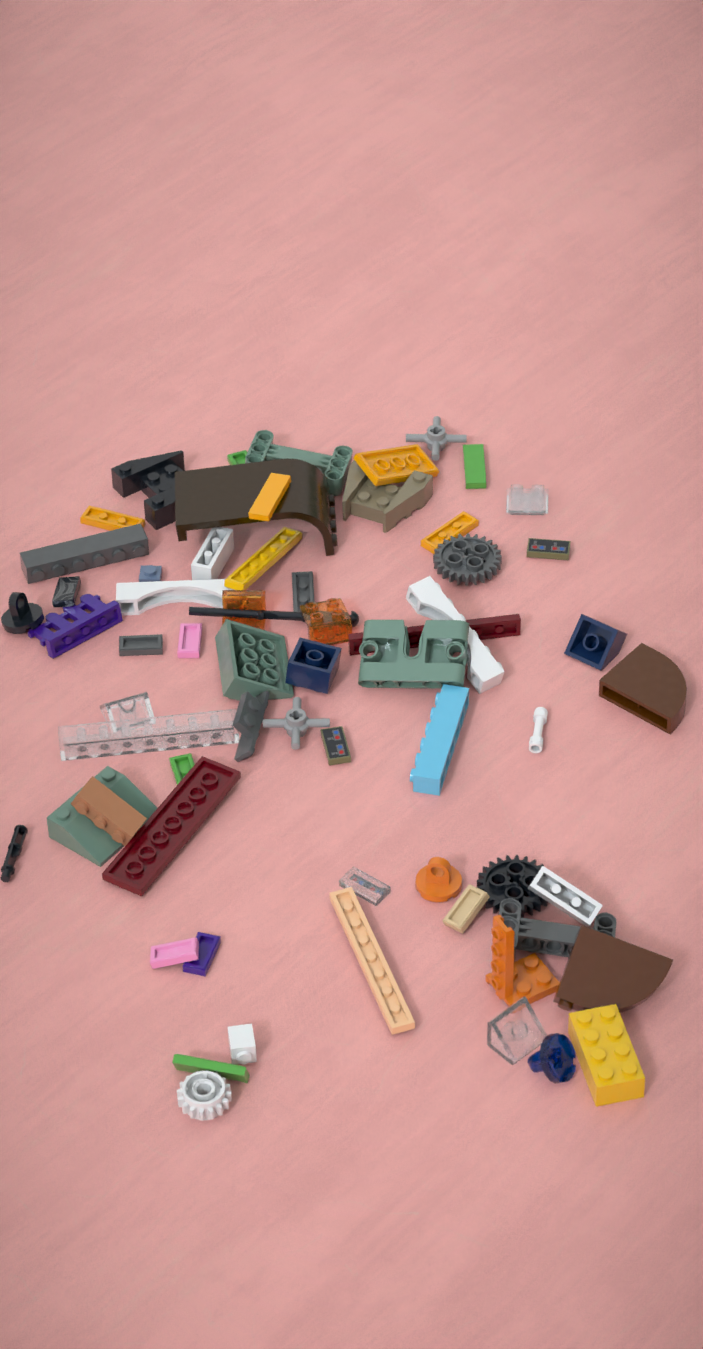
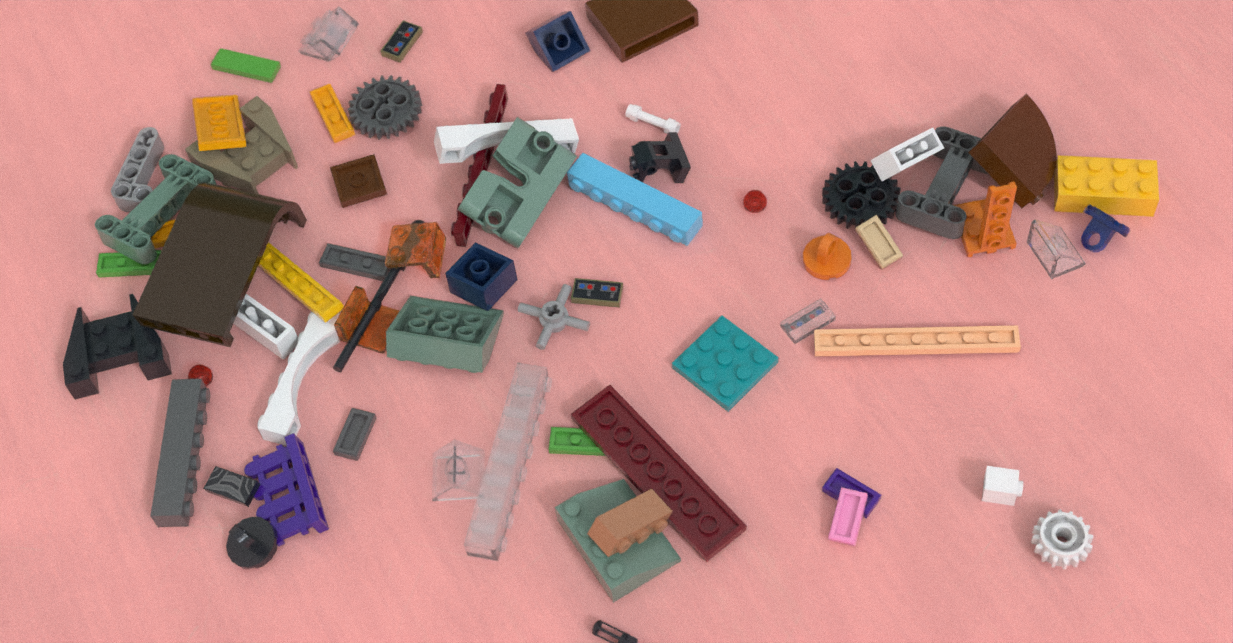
camera: 65 degrees left, 15 degrees up
(108, 519) = (135, 412): light orange tile -> none
(150, 573) = (247, 396): sand blue plate -> none
(157, 542) = (201, 370): none -> clear red plate
(189, 640) = (372, 385): bright pink tile -> none
(226, 1070) = (1026, 523): bright green tile -> none
(248, 722) = (526, 351): dark grey bracket -> none
(269, 497) = (241, 230): light orange tile -> none
(298, 843) = (725, 363): none -> teal plate
(325, 440) = (141, 161): none -> light grey beam
(383, 568) = (358, 181): none -> reddish brown plate
(436, 438) = (188, 82): light grey bar -> none
(477, 819) = (755, 196): none -> clear red plate
(493, 749) = (671, 157): none -> black tile

